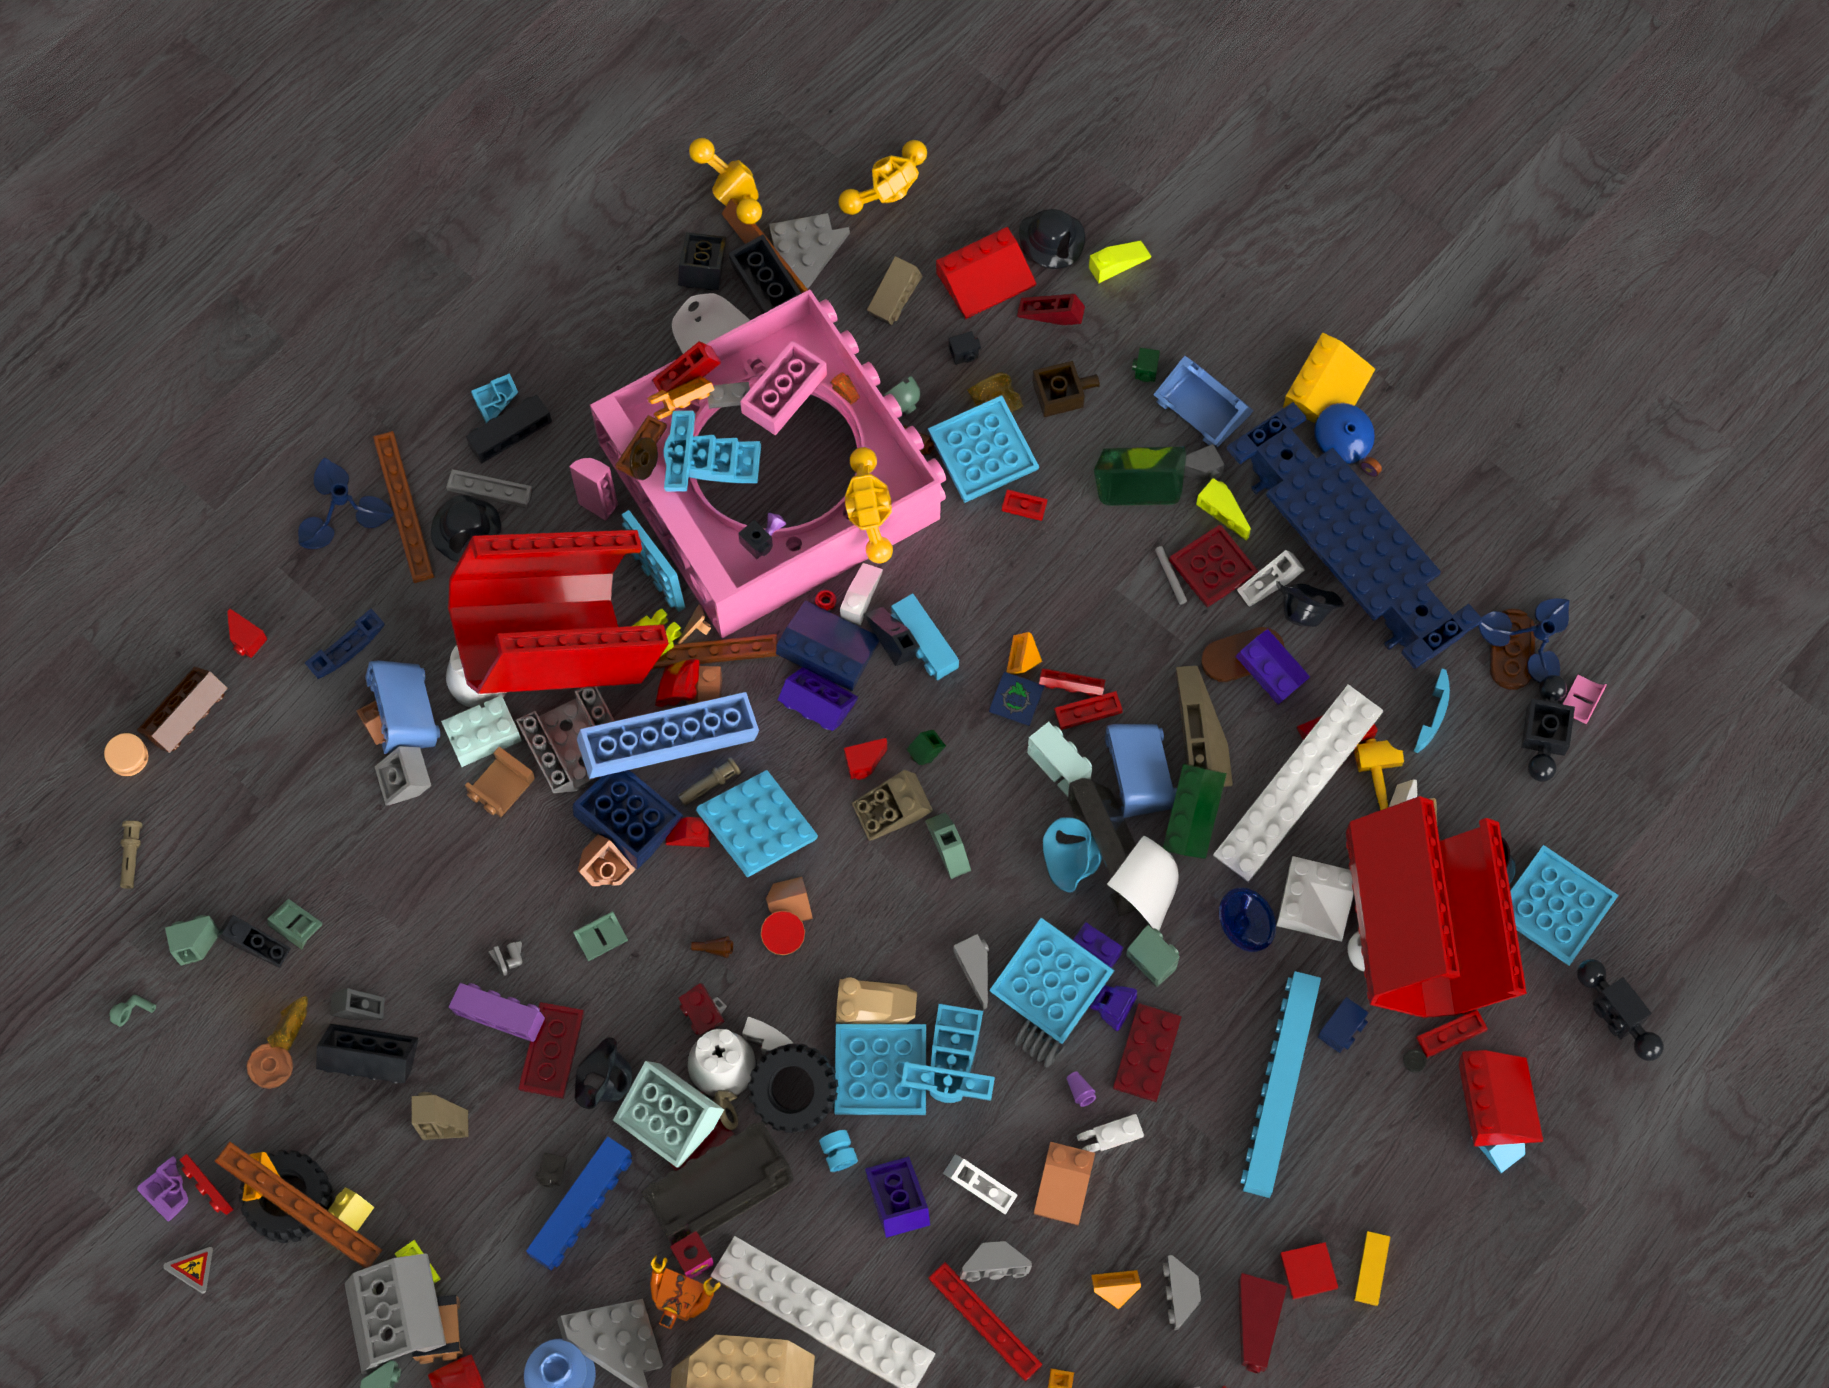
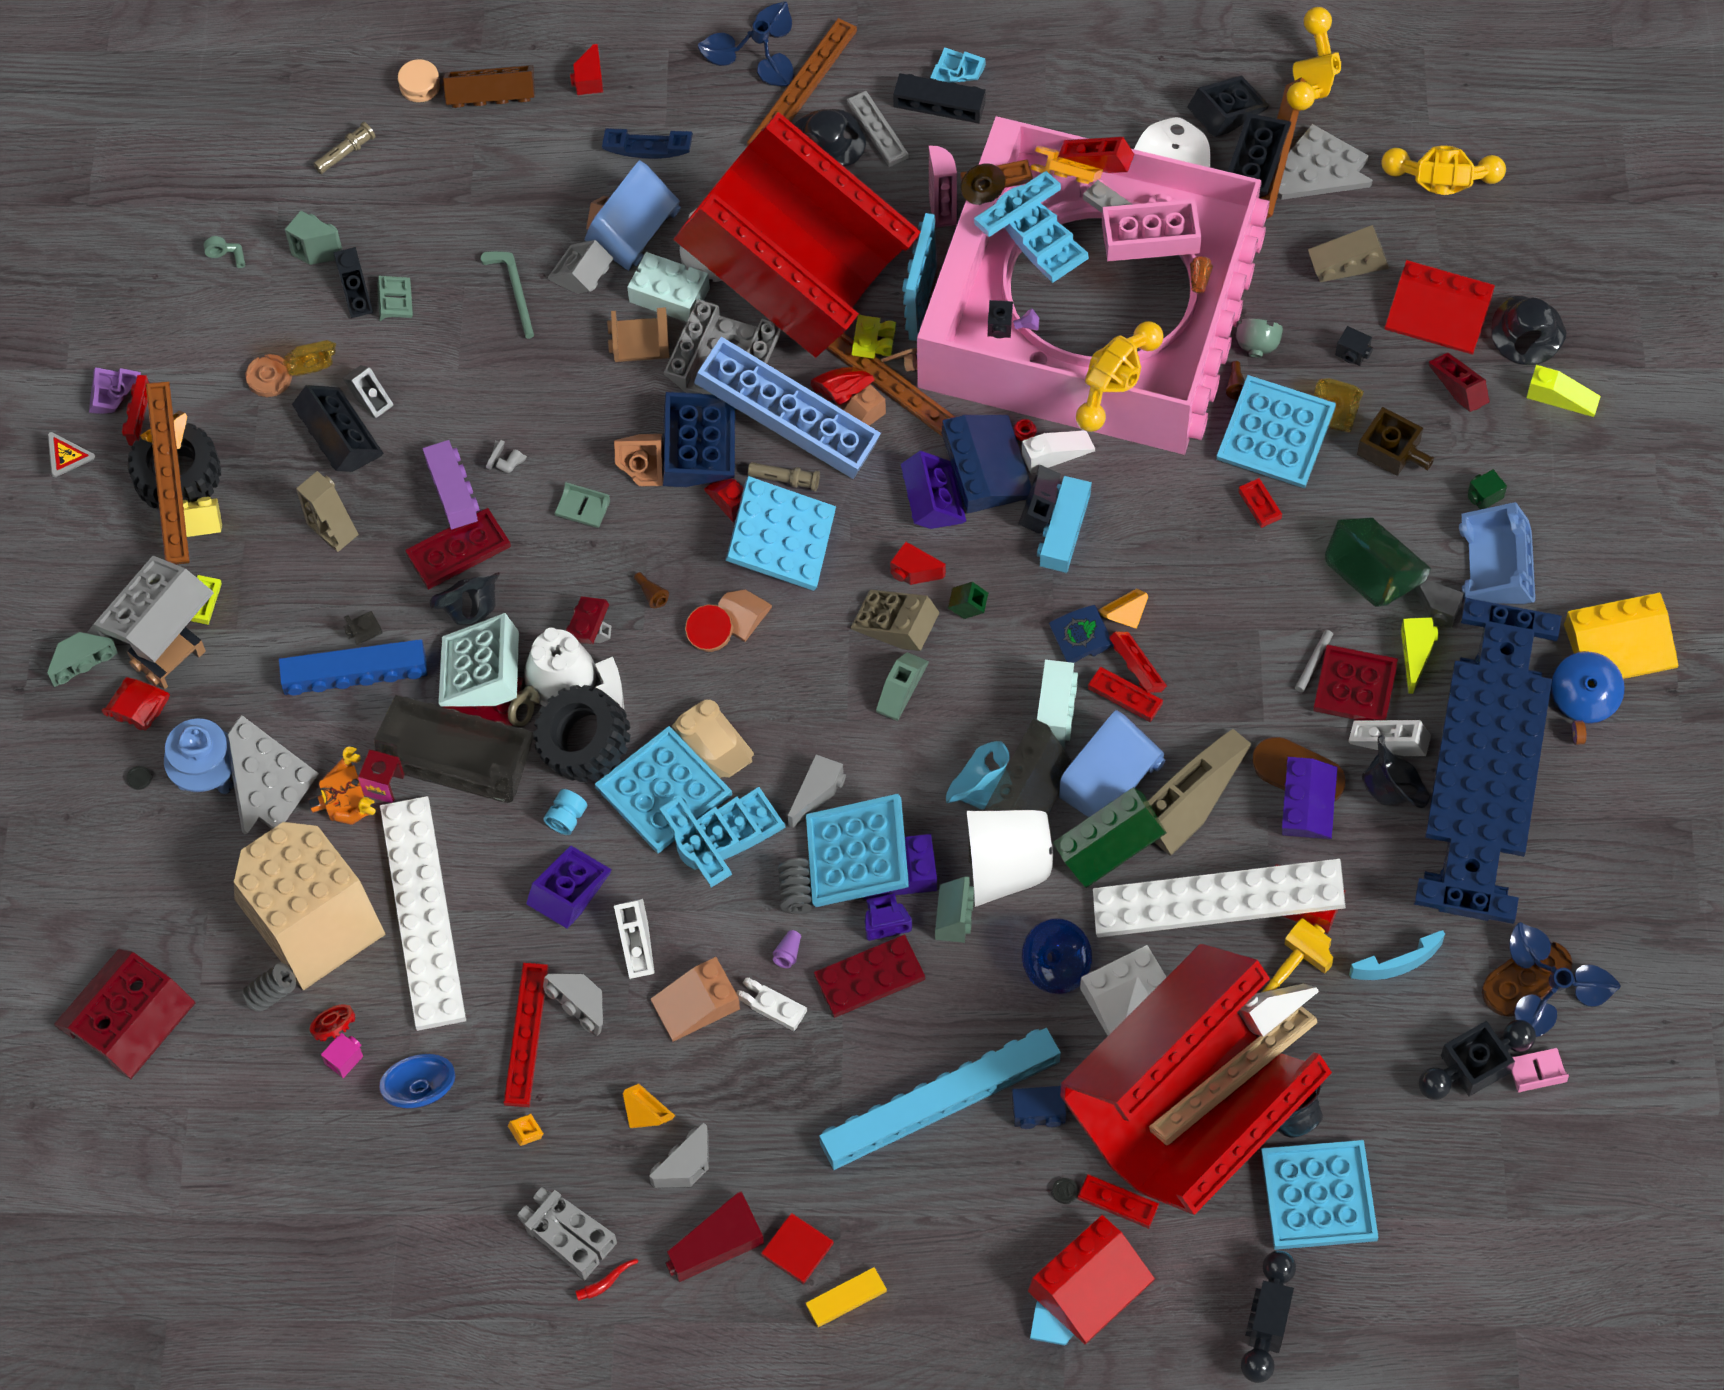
camera: 50 degrees right, 5 degrees down
(344, 818) = (508, 258): none -> sand green piece

